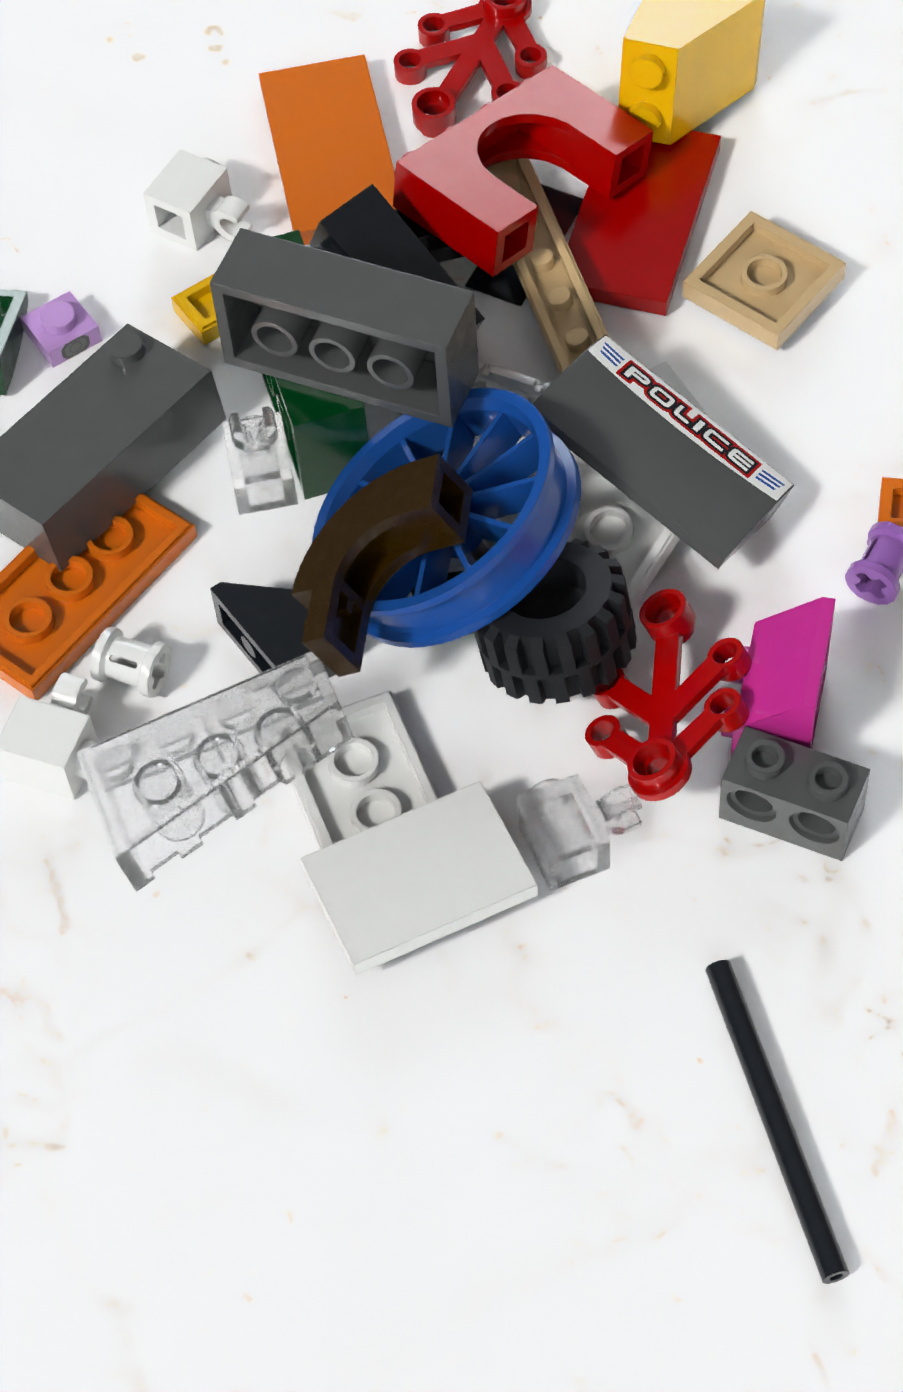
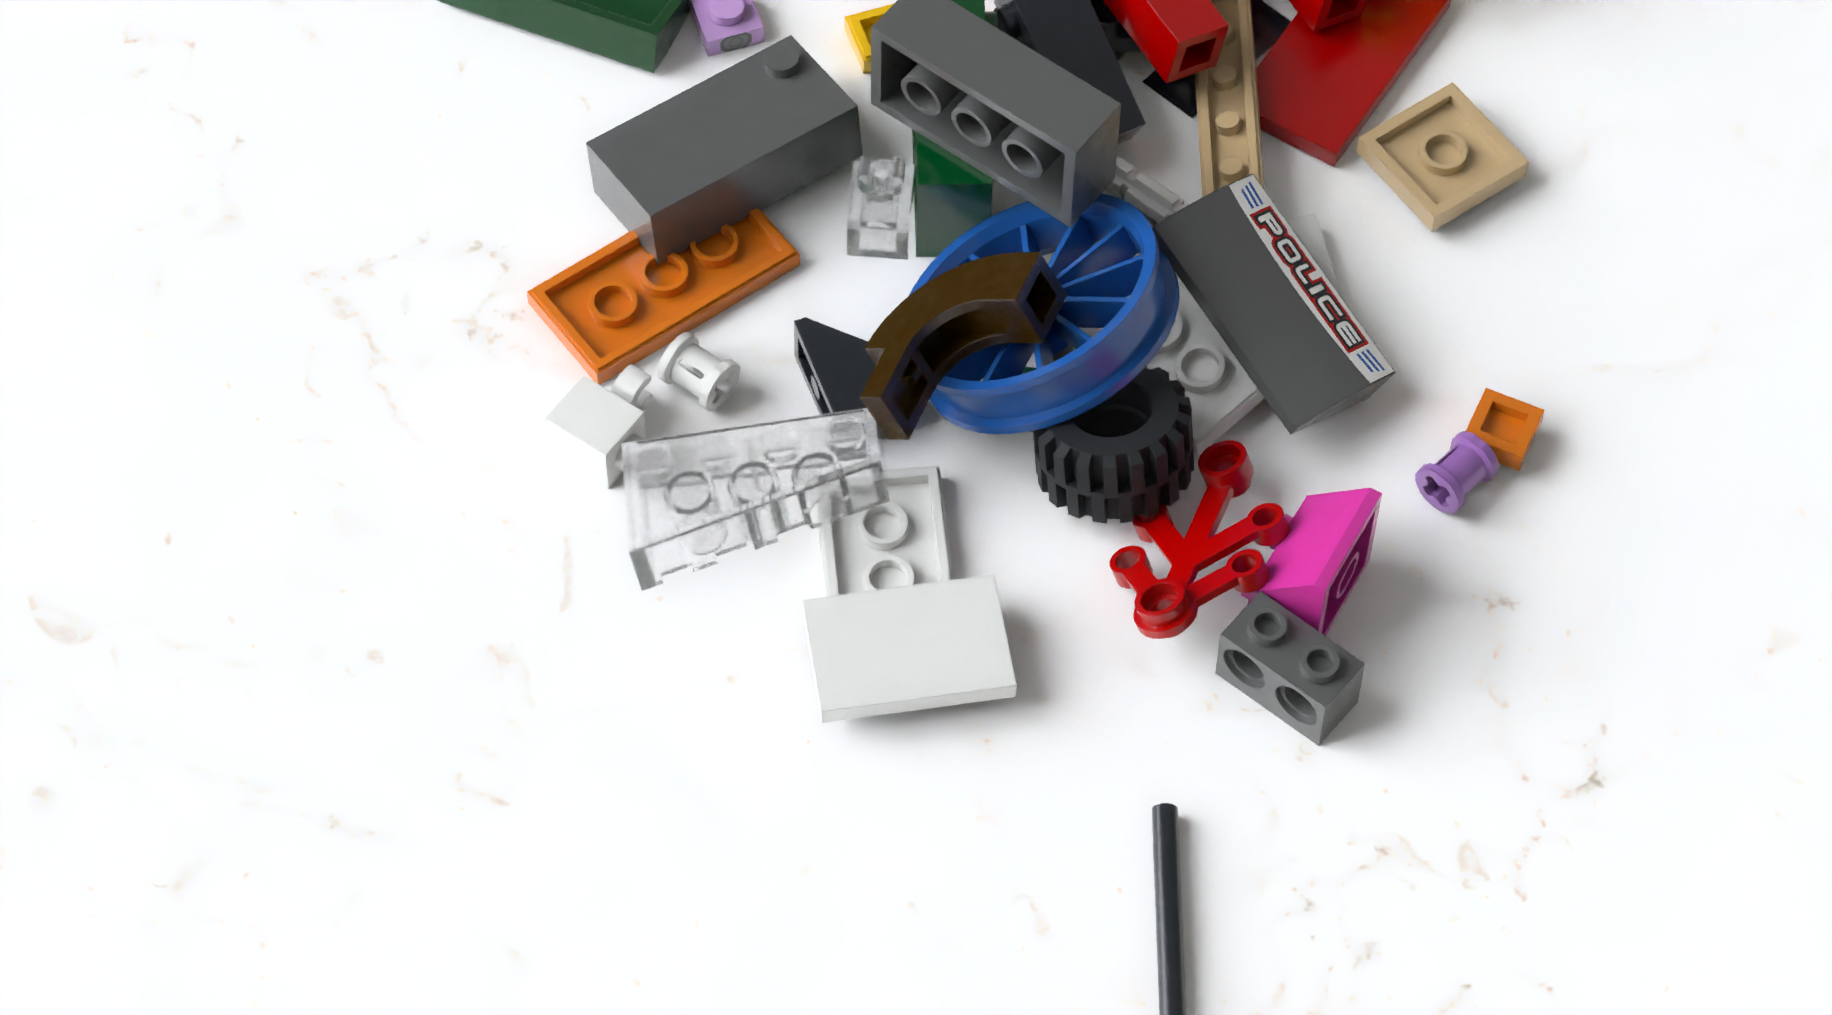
camera: 10 degrees right, 0 degrees up
(570, 830) = (1066, 645): clear brick -> none

